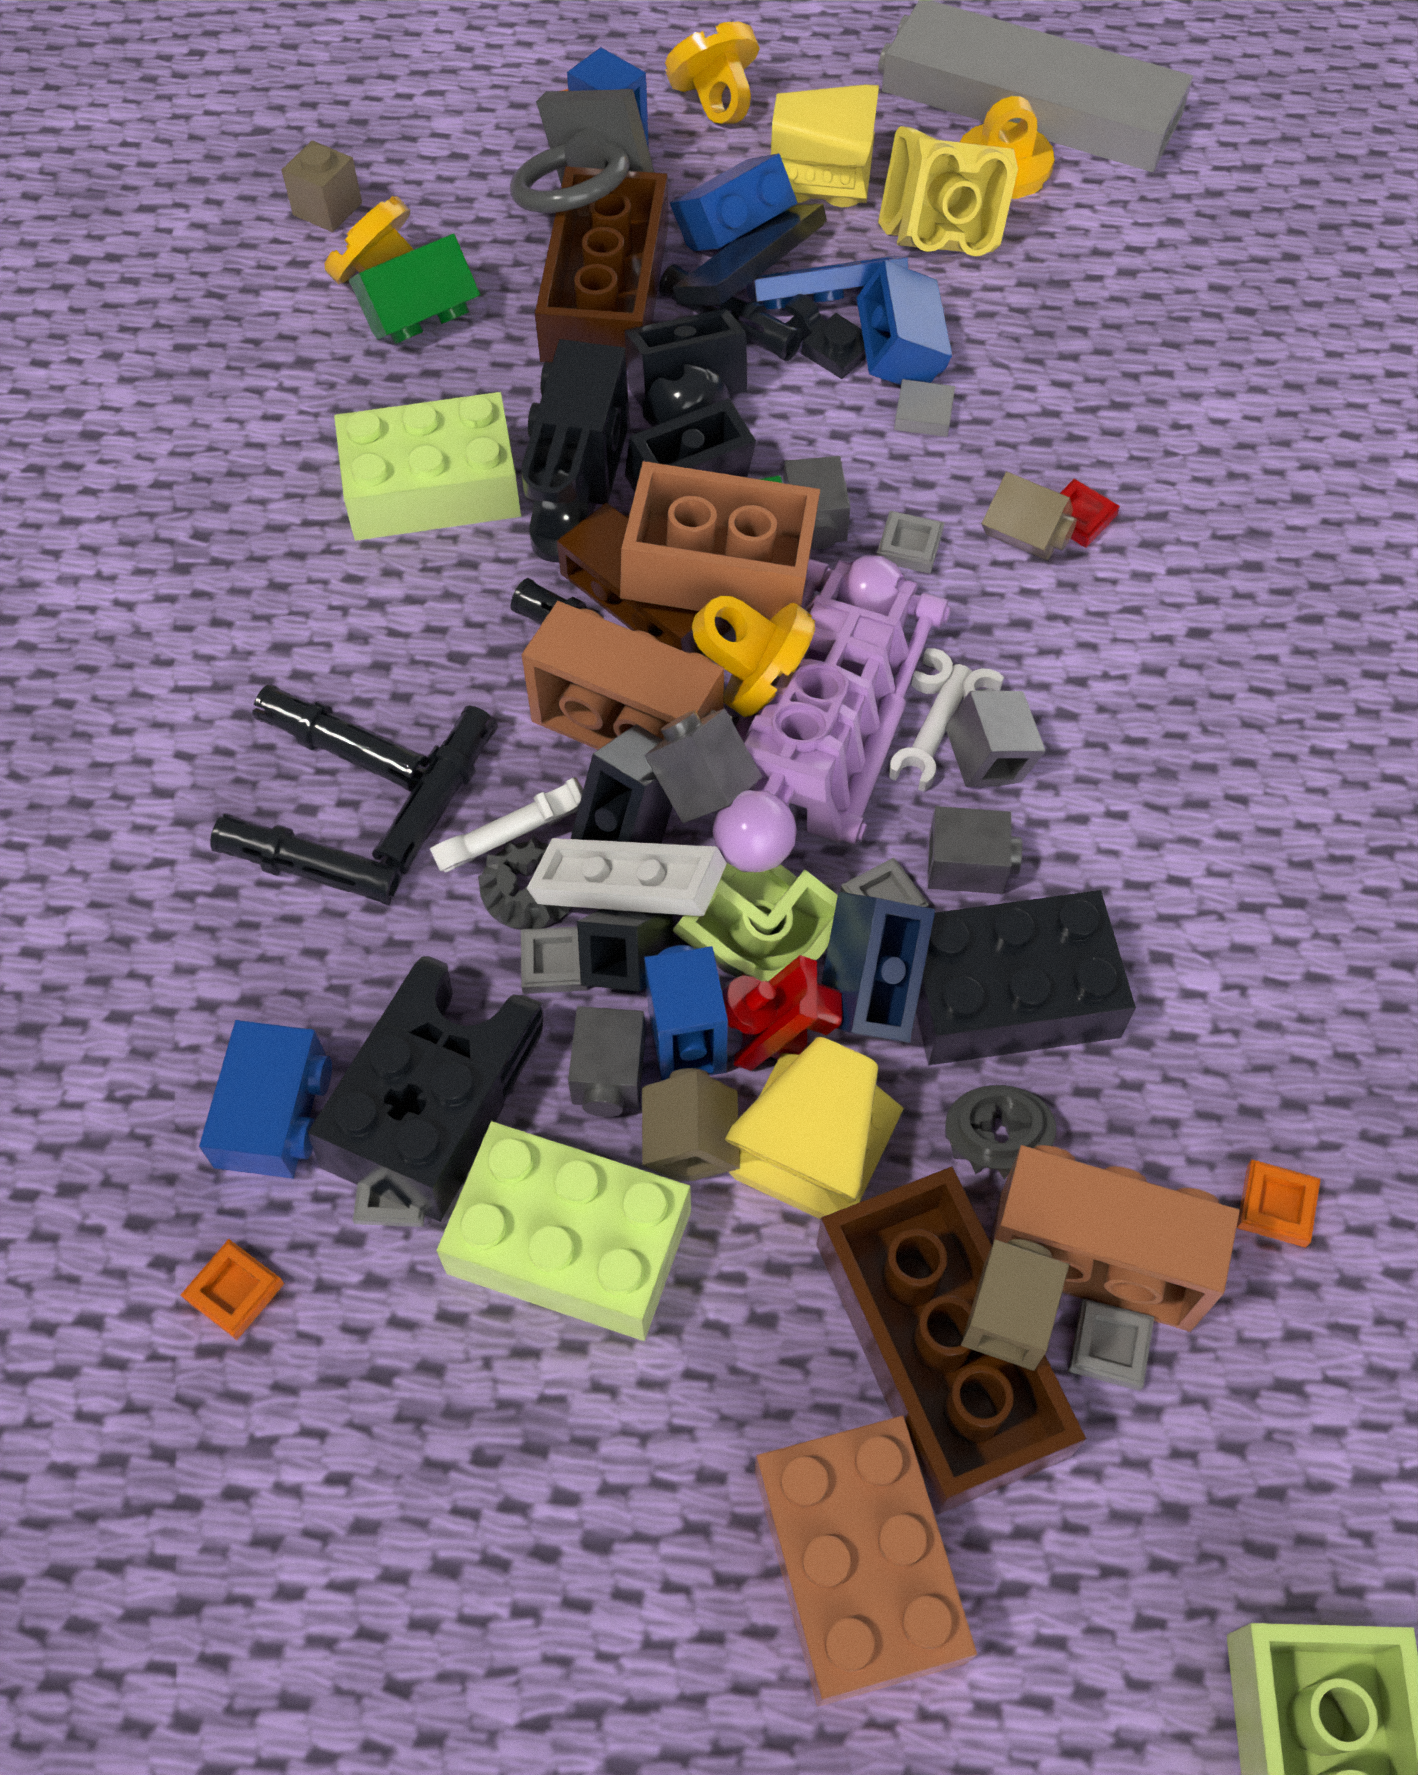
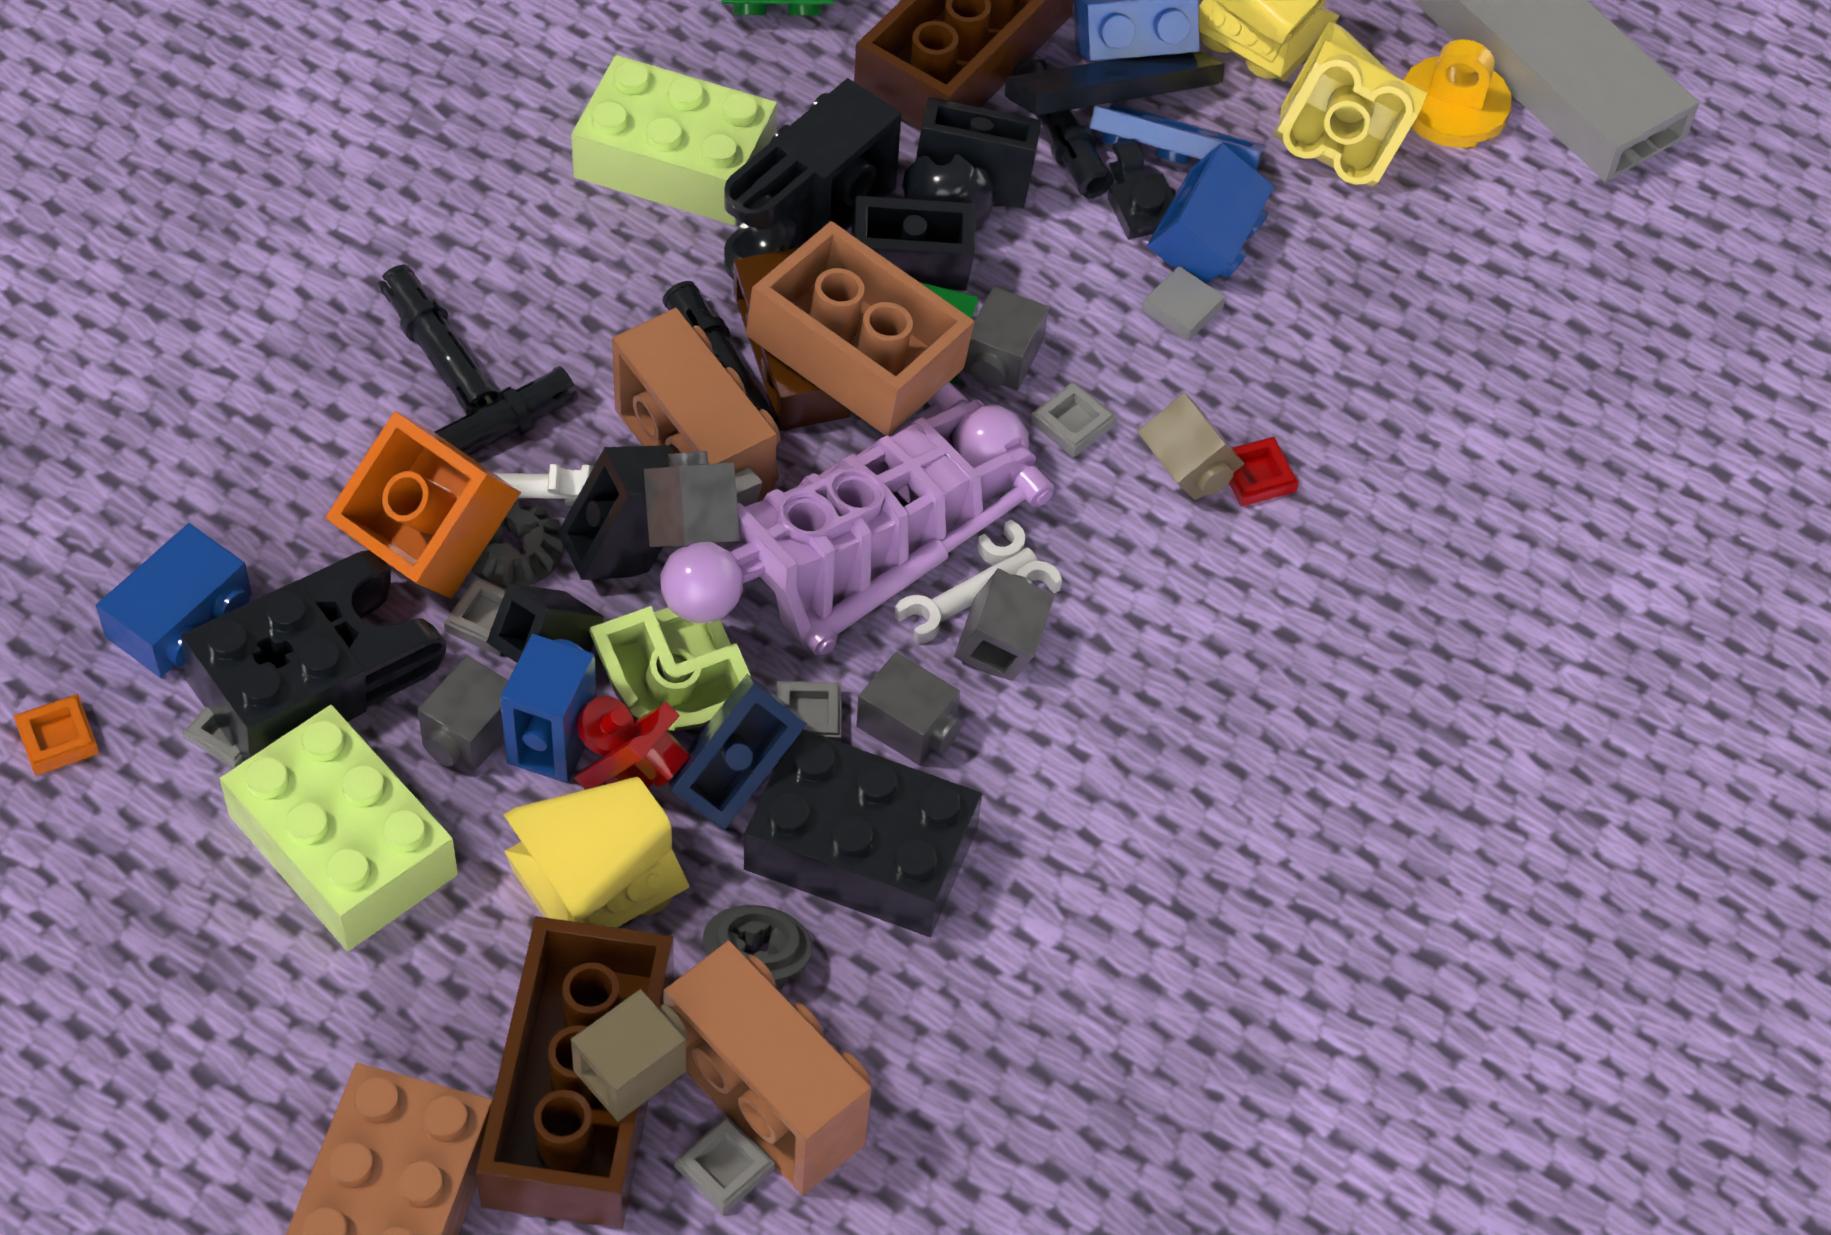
camera: 25 degrees right, 5 degrees down
(282, 851) = (322, 409): black pin -> none
(443, 891) = (422, 505): none -> orange brick
(628, 876) = (578, 569): white plate -> none
(688, 1125) = (483, 791): dark tan brick -> none
(760, 649) = (826, 437): yellow tile -> none
(1278, 1203) = (958, 1139): orange tile -> none

